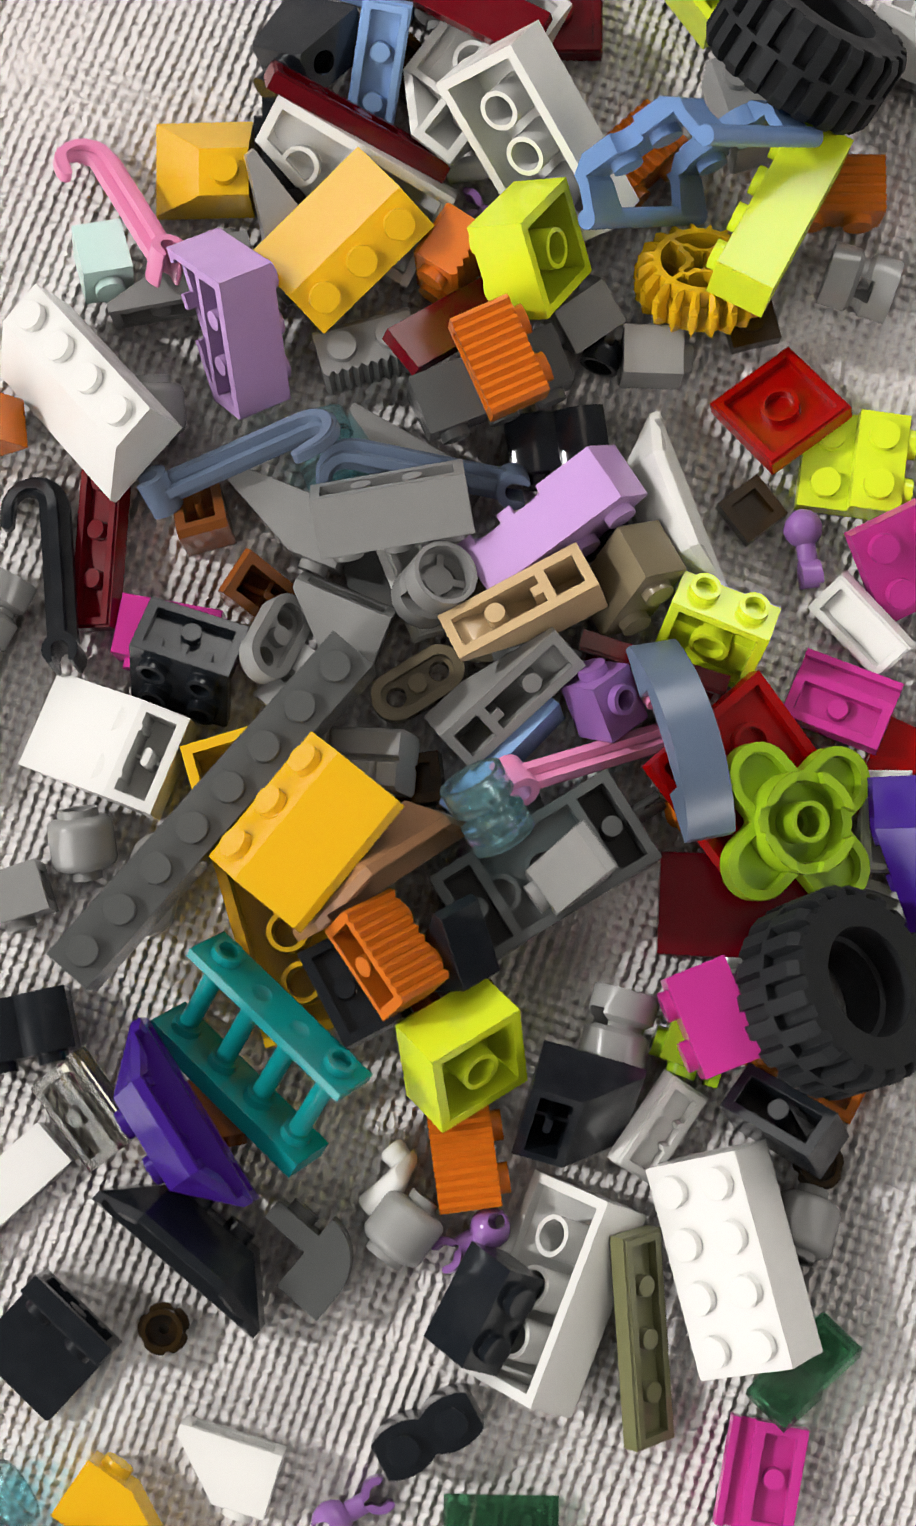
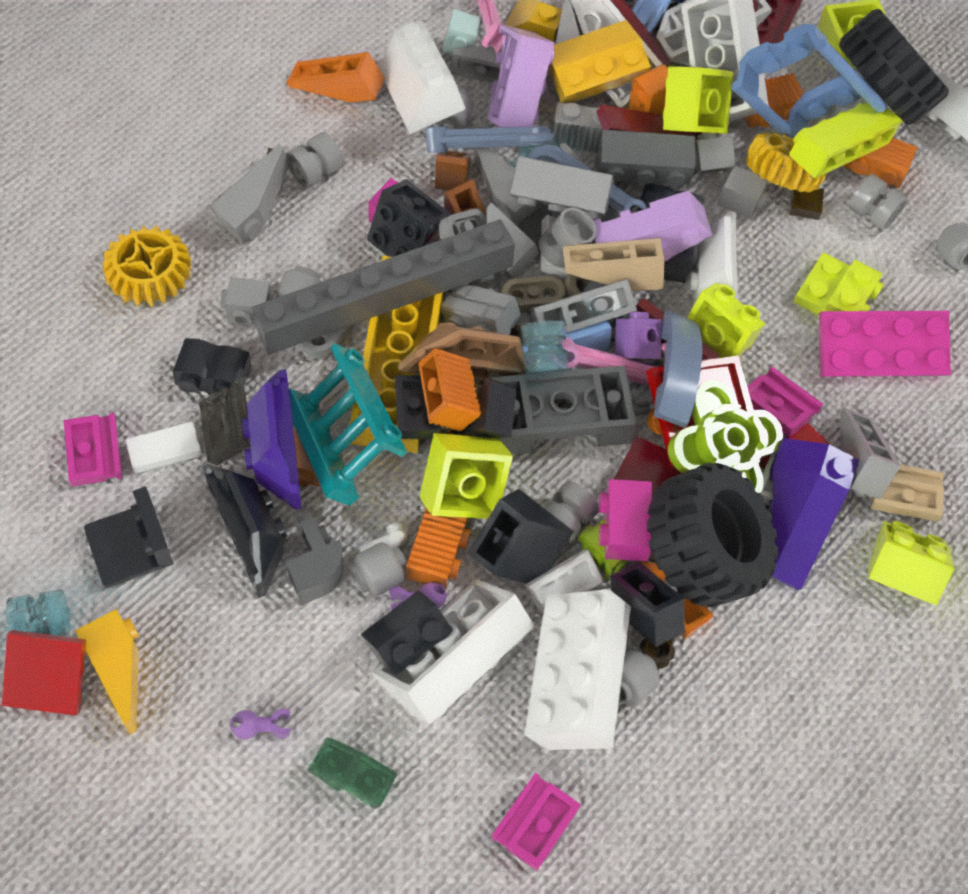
camera: 15 degrees right, 20 degrees down
(58, 567) = (344, 187): black piece -> none
(100, 556) = (387, 161): dark red tile -> none
(109, 744) = (340, 244): white slope -> none
(153, 1339) = (199, 558): dark brown plate -> none
(232, 1467) = (202, 662): white slope -> none
(305, 831) = (433, 303): yellow slope -> none
(414, 1436) = (326, 693): black brick -> none
(500, 357) = (658, 135): orange brick -> none
(568, 871) = (580, 388): light grey slope -> none
(602, 358) = (713, 183): black hinge -> none
(635, 576) = (684, 279): dark tan brick -> none
(642, 1337) = (497, 696): olive tile -> none
(751, 510) = (768, 287): dark brown plate -> none
(781, 410) = (806, 245): red tile -> none
(791, 1393) = (586, 768): clear green slope -> none
(803, 532) = (793, 309): medium lavender arm -> none
(861, 624) = (809, 367): white tile -> none

